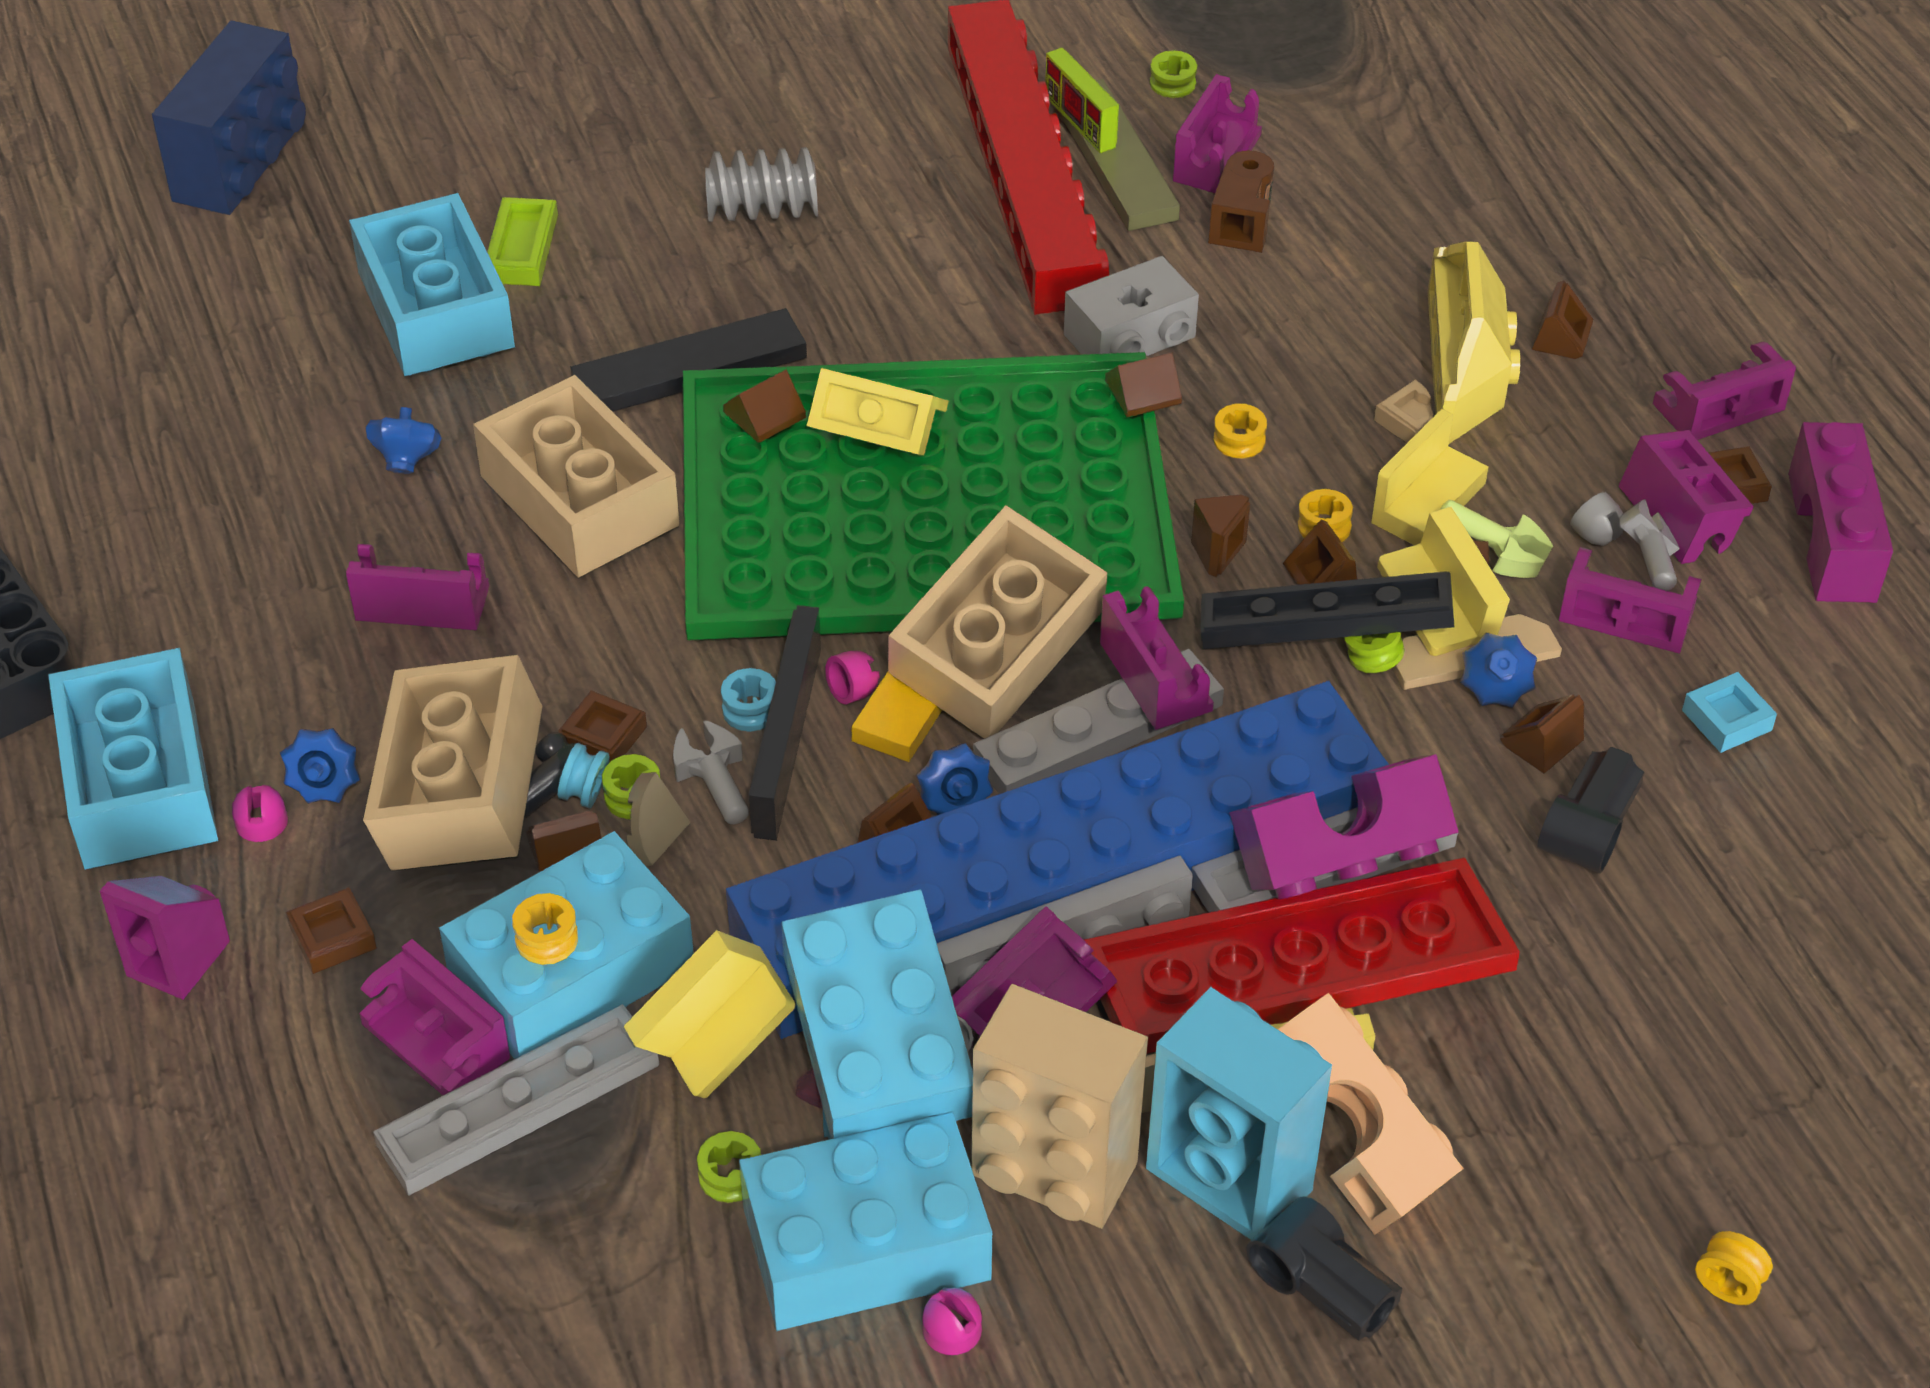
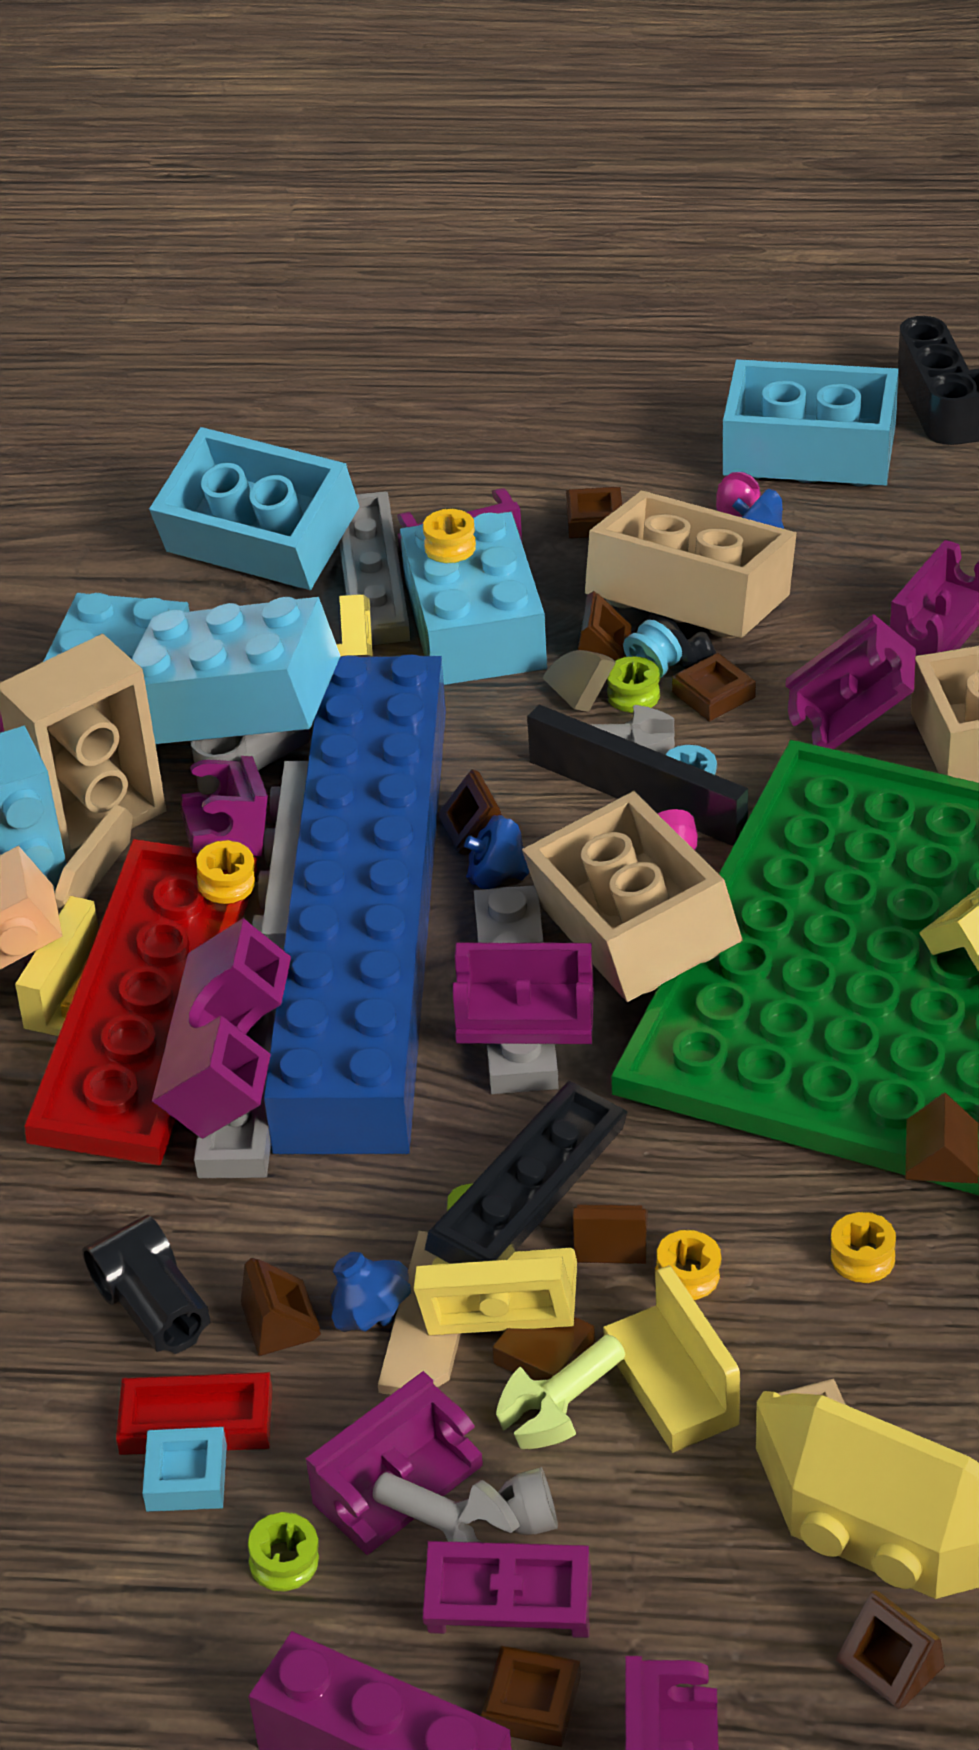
camera: 120 degrees right, 5 degrees down
(165, 931) = (623, 408): magenta slope -> none
(509, 1201) = (255, 507): none -> medium azure brick
(610, 579) = (852, 682): none -> magenta hinge
(1134, 917) = (225, 887): none -> yellow bush
(1219, 530) = (696, 1145): reddish brown slope -> none
(1670, 743) = (196, 1401): none -> red tile
(1743, 653) = (277, 1529): none -> lime bush

